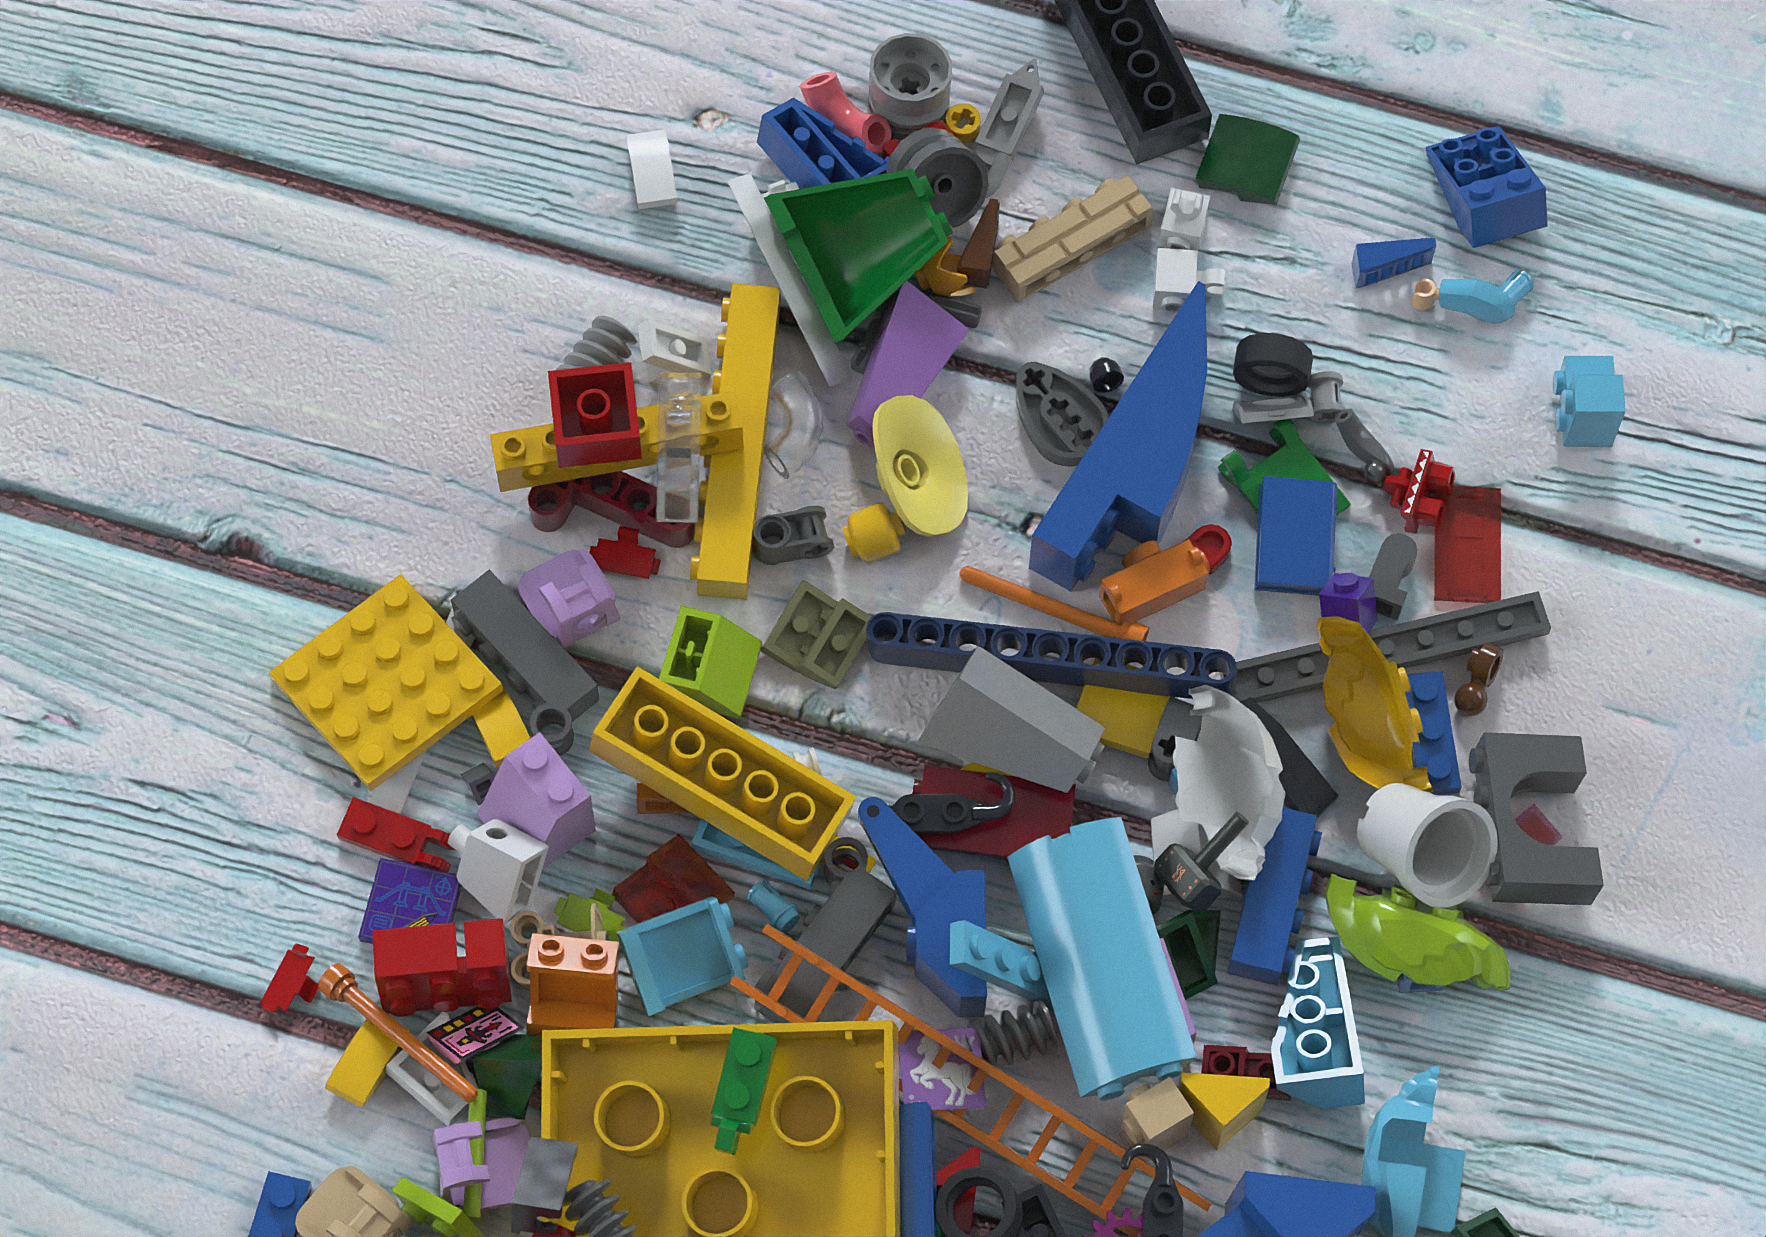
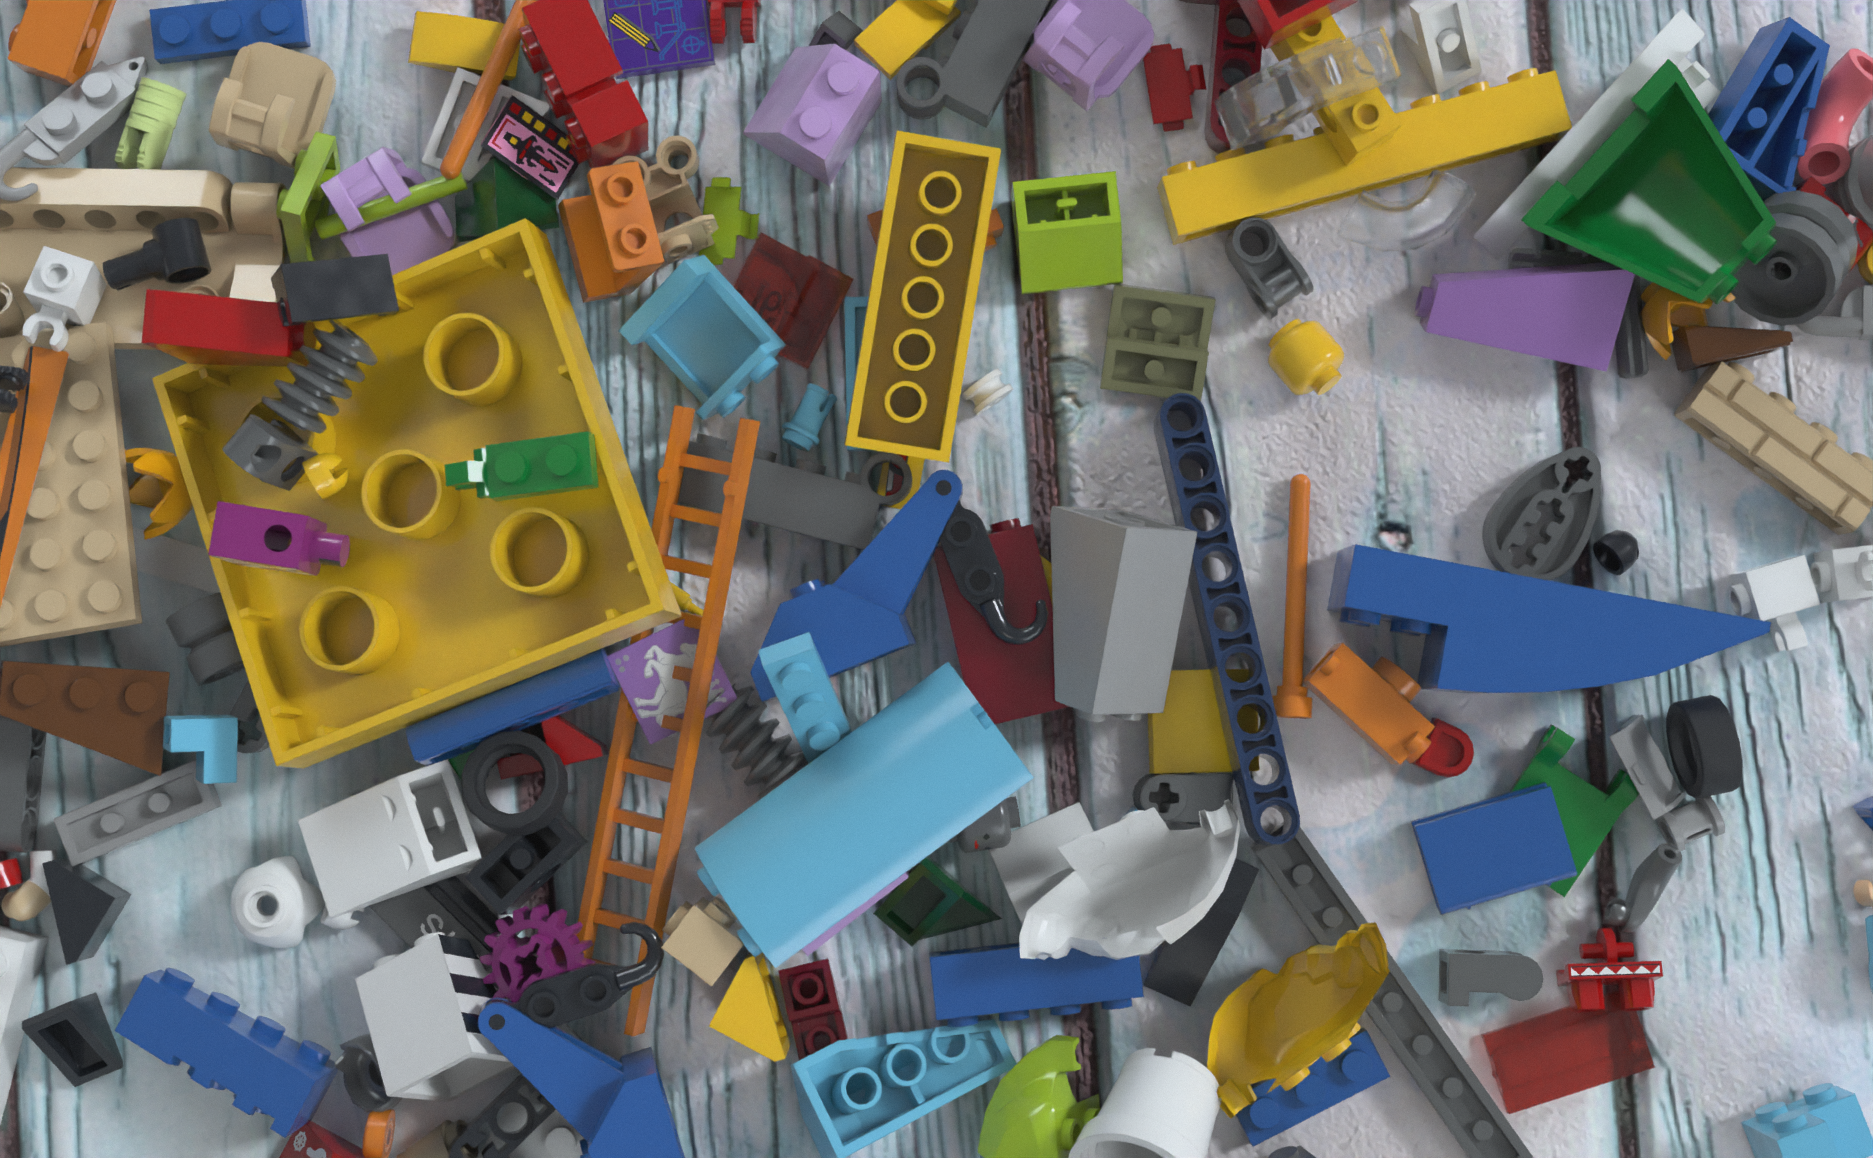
camera: 65 degrees right, 20 degrees up
(499, 866) = (730, 94): white torso -> none
(920, 465) = (1407, 378): light yellow hat -> none
(1188, 873) = (1008, 875): pearl dark grey piece -> none
(1350, 598) = (1423, 943): dark purple brick -> none
(1484, 665) = (1369, 1122): reddish brown plate -> none

